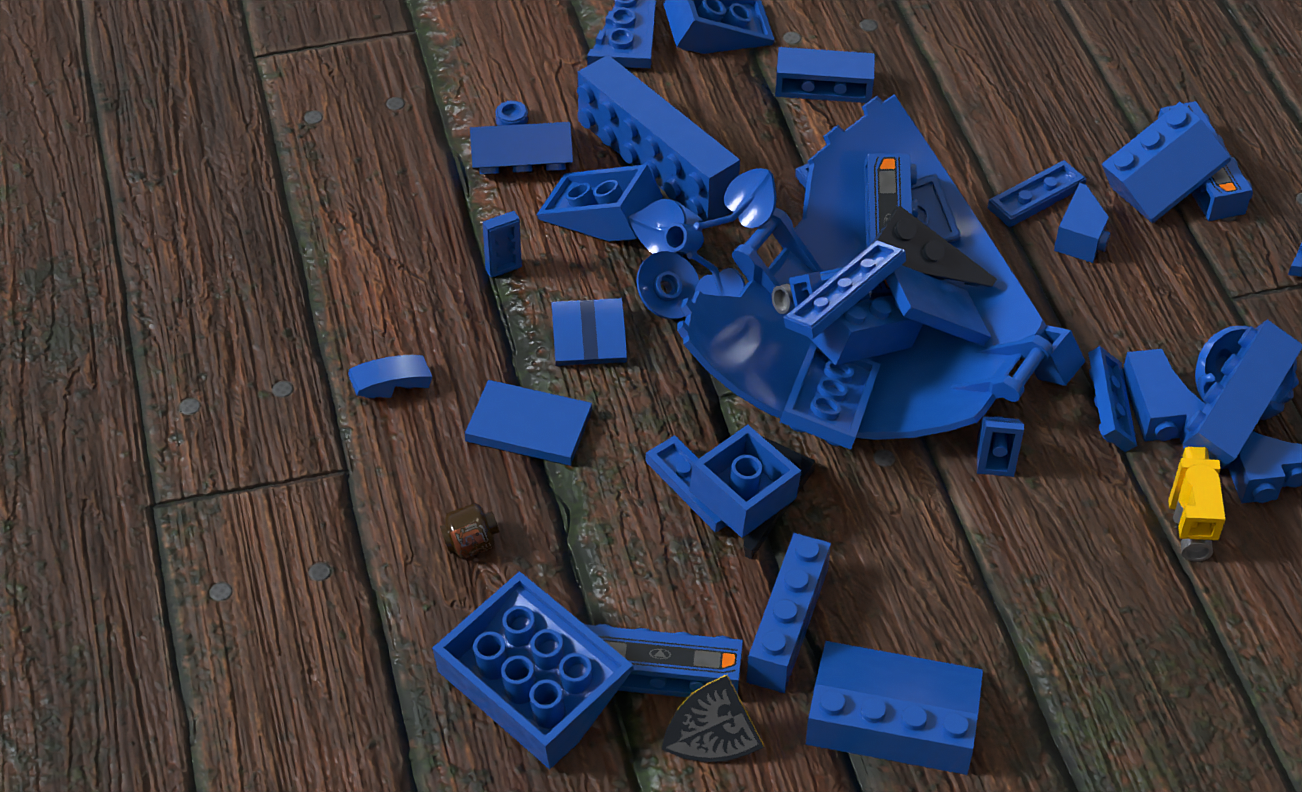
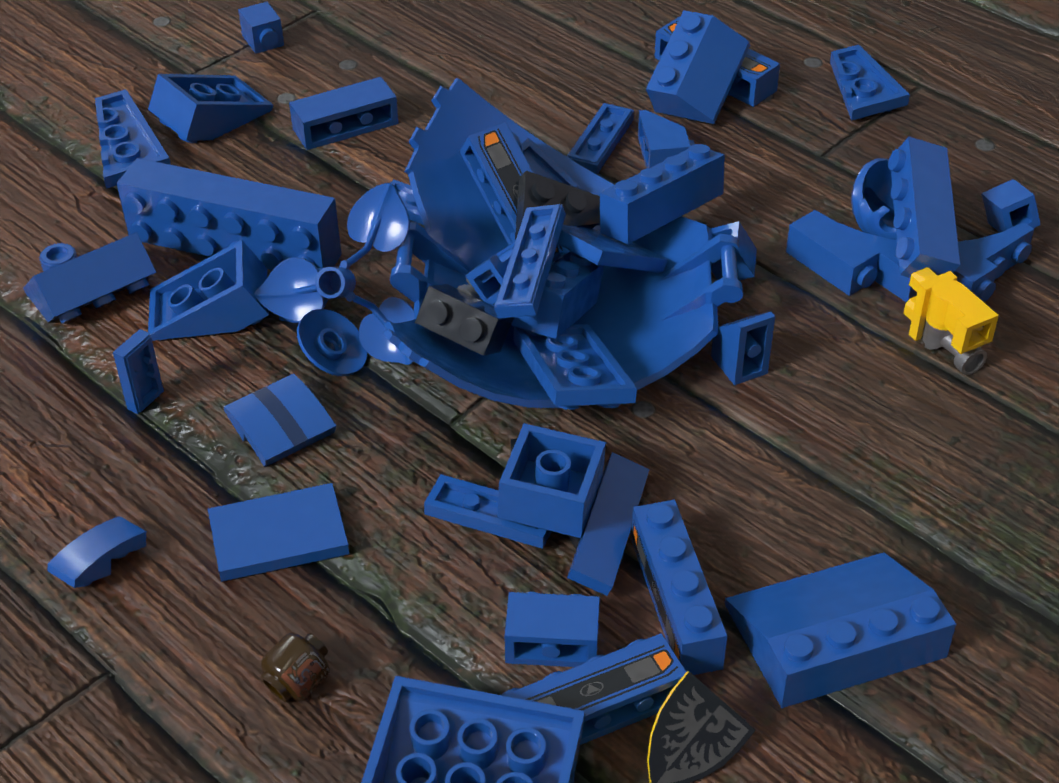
camera: 30 degrees left, 5 degrees down
(671, 596) = (551, 629): none -> blue brick
(762, 309) = (463, 319): none -> black brick
(772, 538) = (608, 525): none -> blue tile
(1020, 274) = (661, 193): none -> blue brick
(1112, 399) = (801, 272): blue plate -> none

